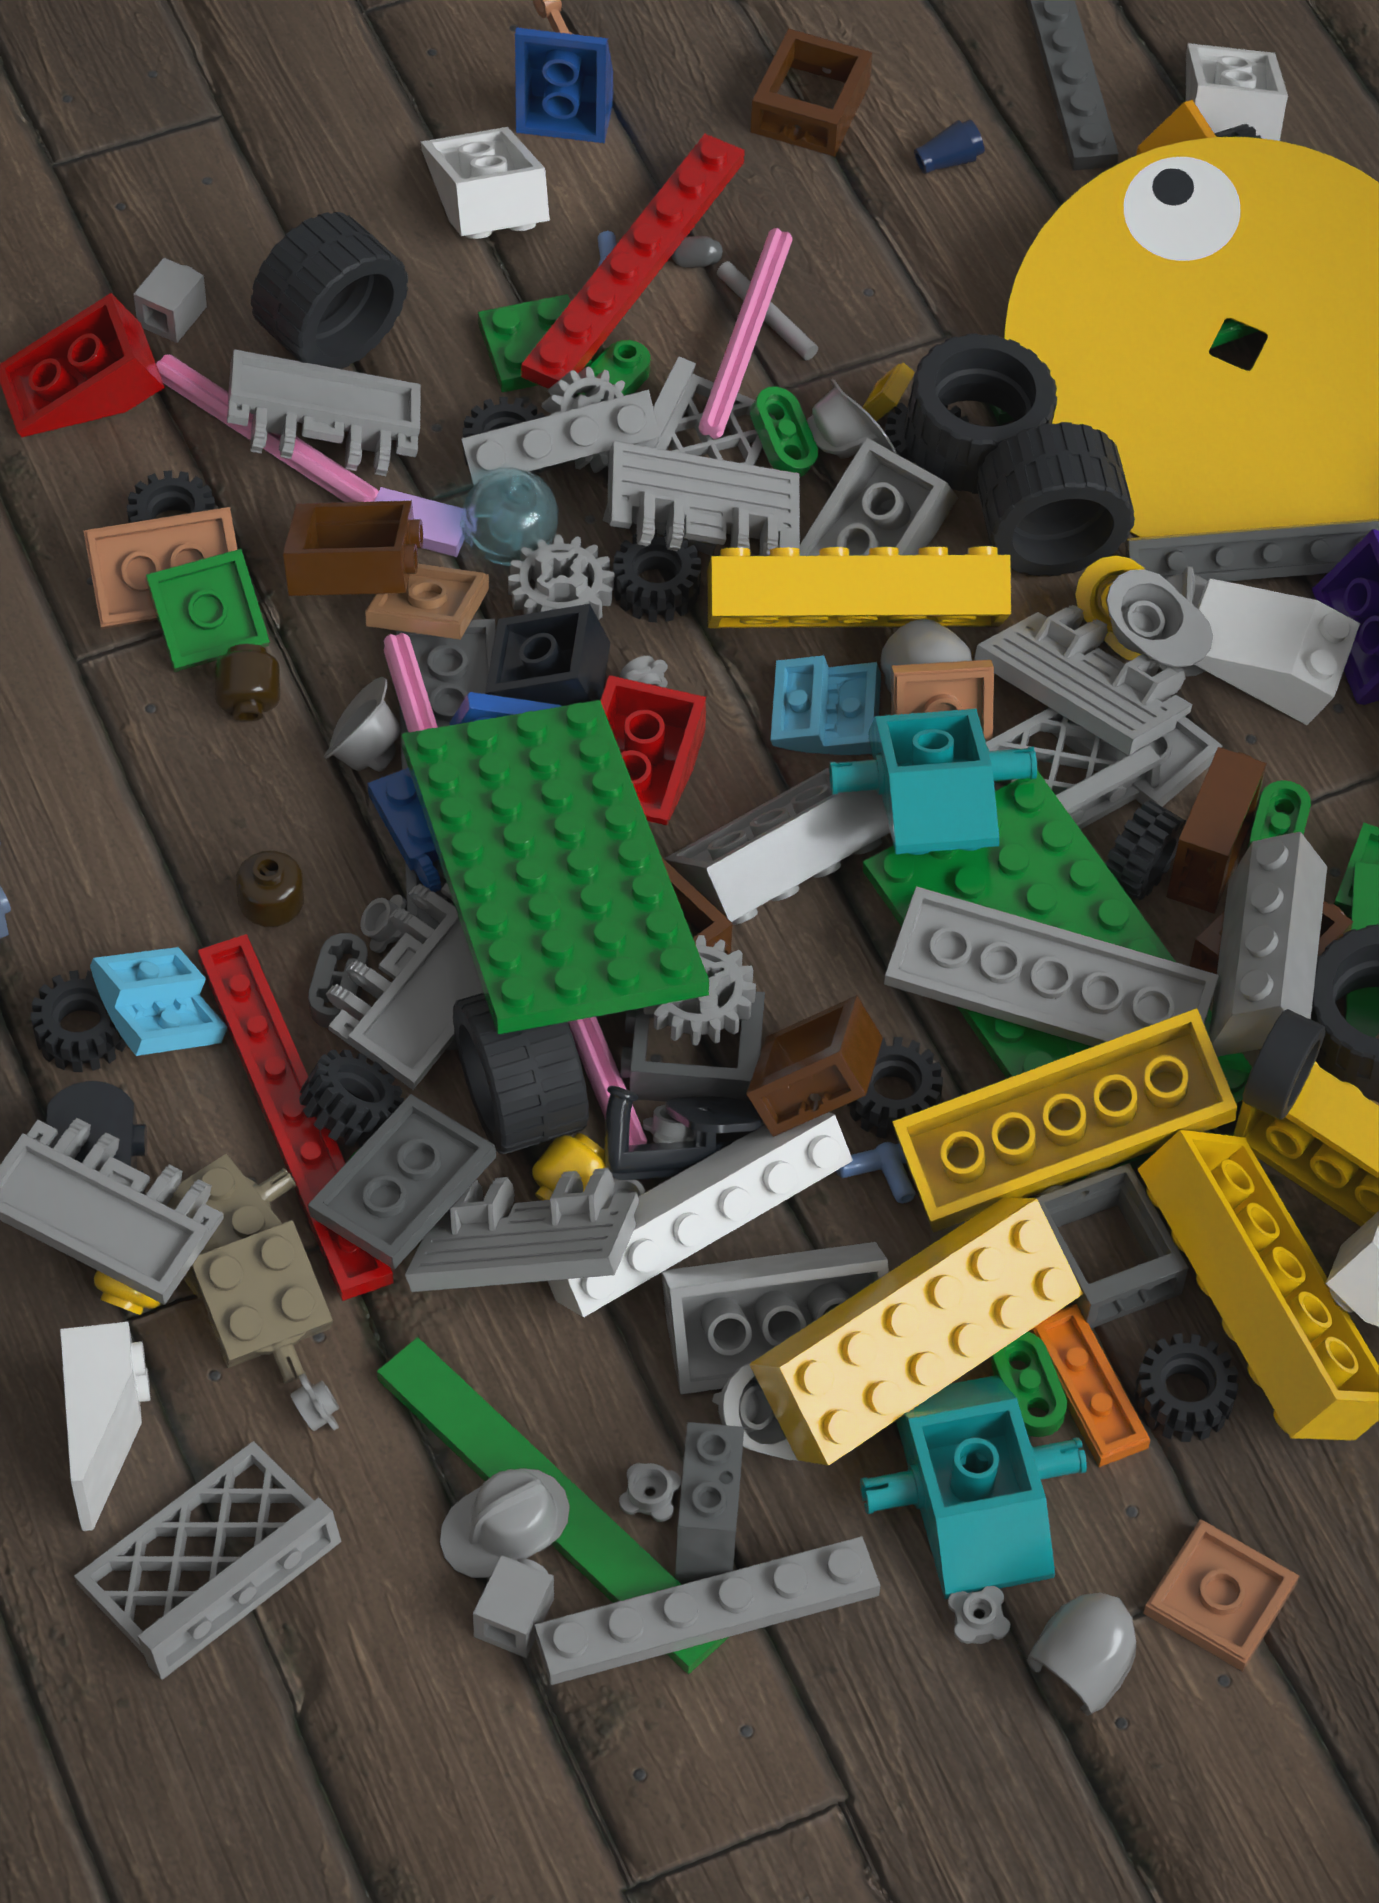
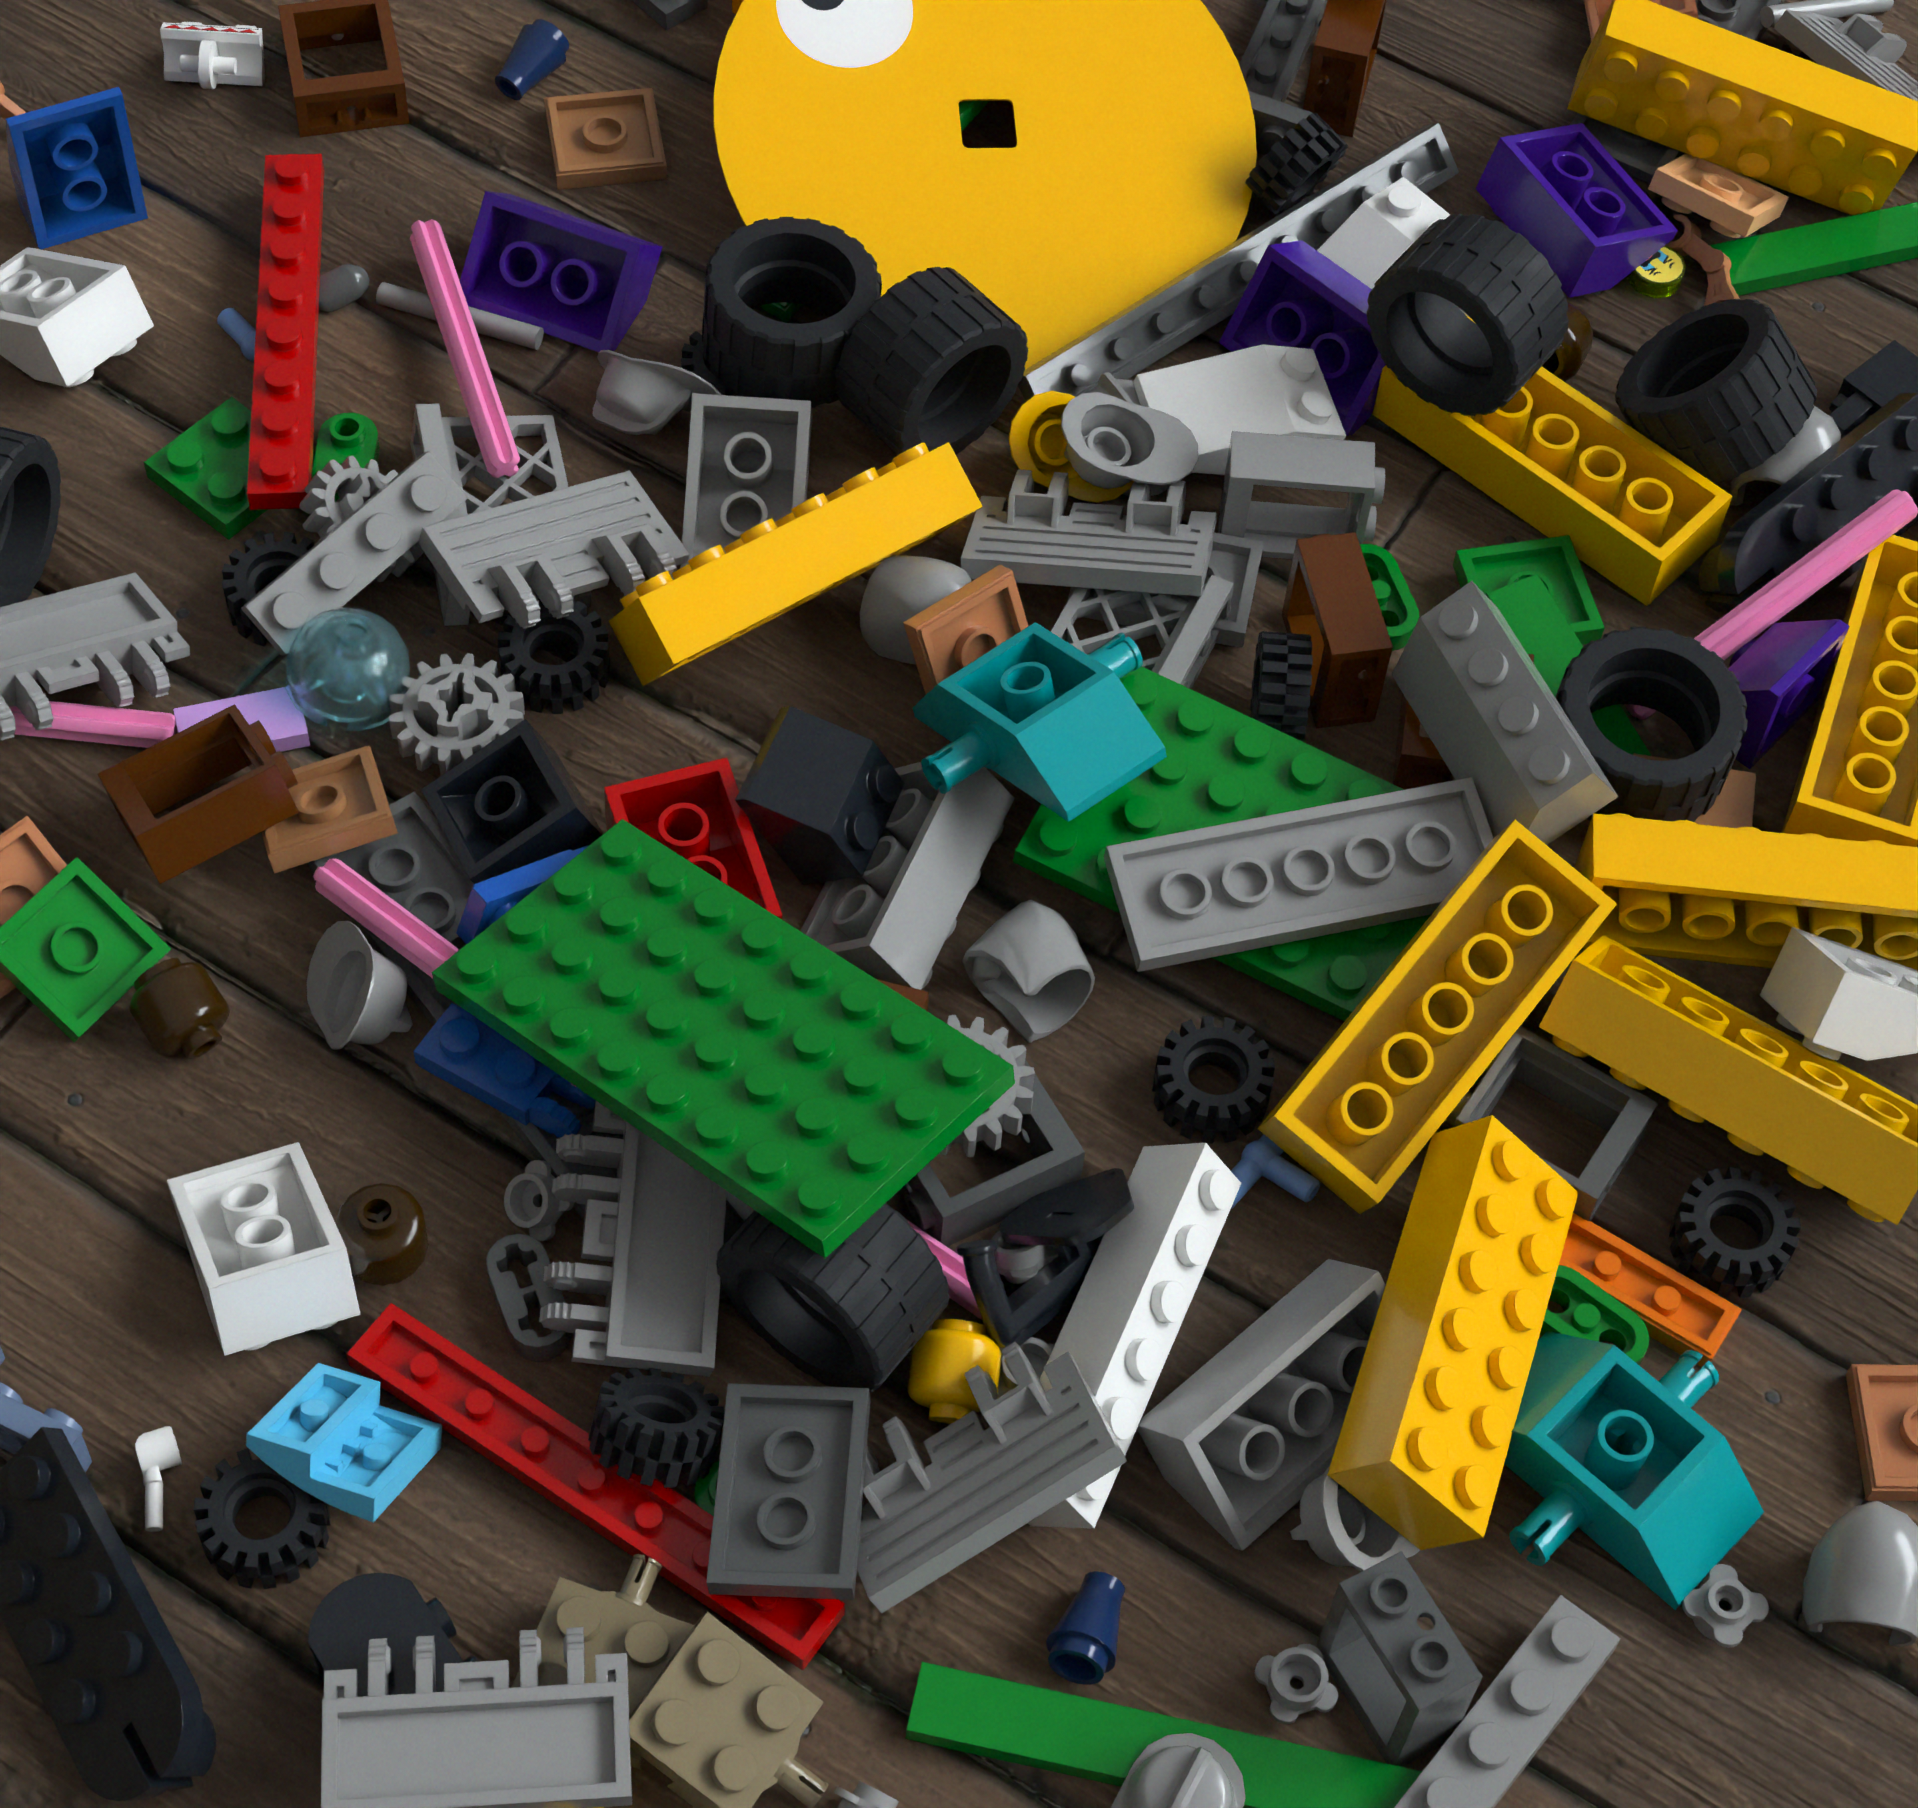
camera: 35 degrees left, 0 degrees up
(43, 948) = (156, 1452): none -> white hand
(191, 859) = (264, 1248): none -> white slope
(534, 1381) = (1087, 1633): none -> dark blue cone
(646, 670) = (623, 766): light grey plate -> none
(726, 45) = (213, 54): none -> white hips
(755, 755) = (819, 796): none -> black slope
(787, 434) = (579, 432): green plate -> none
(798, 1065) = (1187, 1100): reddish brown window -> none
(821, 947) = (1031, 969): none -> light grey piece
(824, 706) = (841, 688): medium azure slope -> none
(853, 309) = (557, 271): none -> dark purple slope
(888, 391) = (659, 334): yellow tile -> none
(965, 230) = (605, 138): none -> medium nougat tile
(1274, 699) = (1304, 465): none -> light grey window
(1283, 1064) = (1638, 832): black tyre -> none

